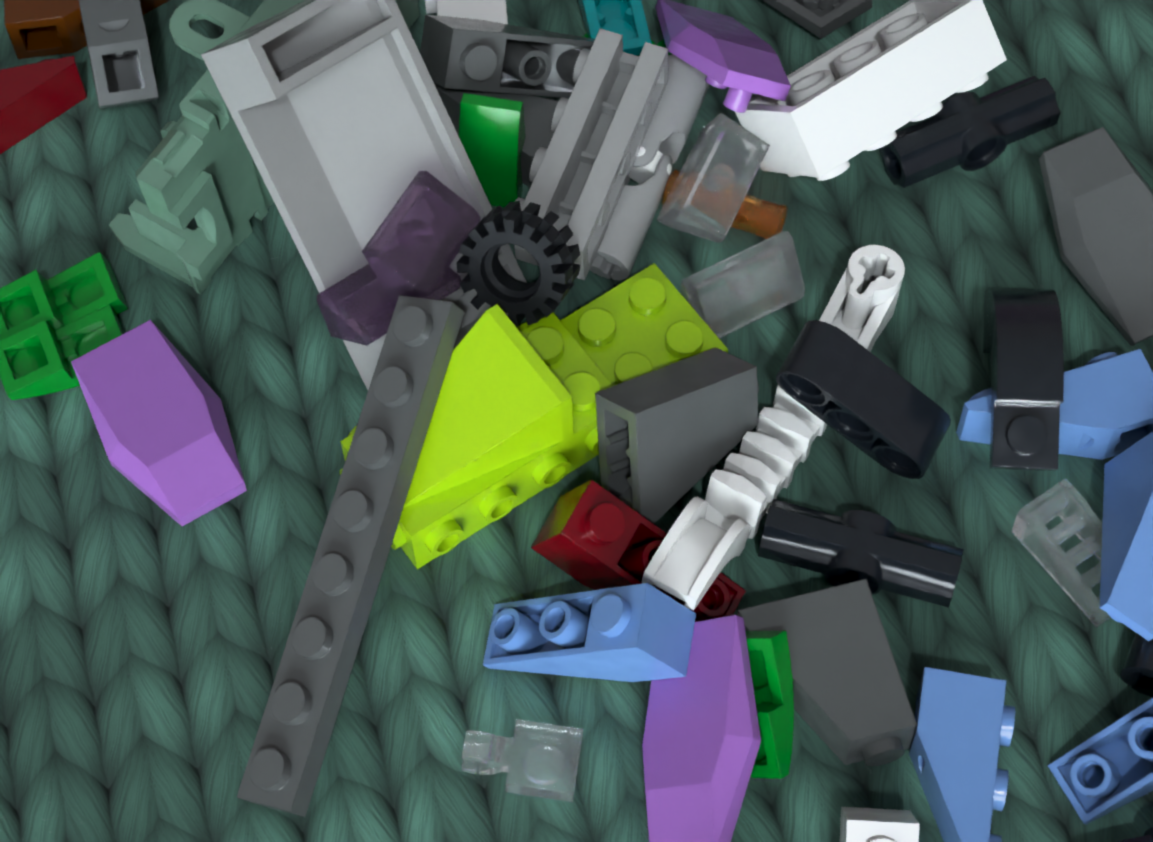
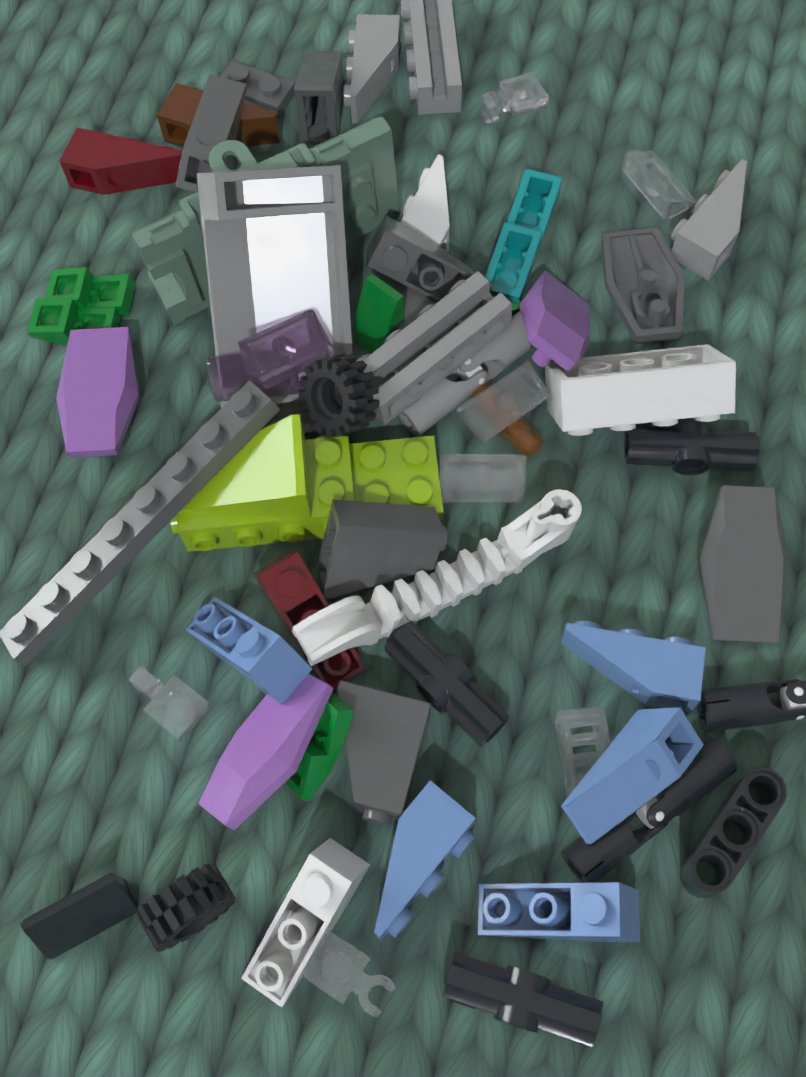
camera: 30 degrees right, 5 degrees up
(863, 399) = (503, 587): black beam -> none
(1026, 377) = (613, 625): black arch -> none

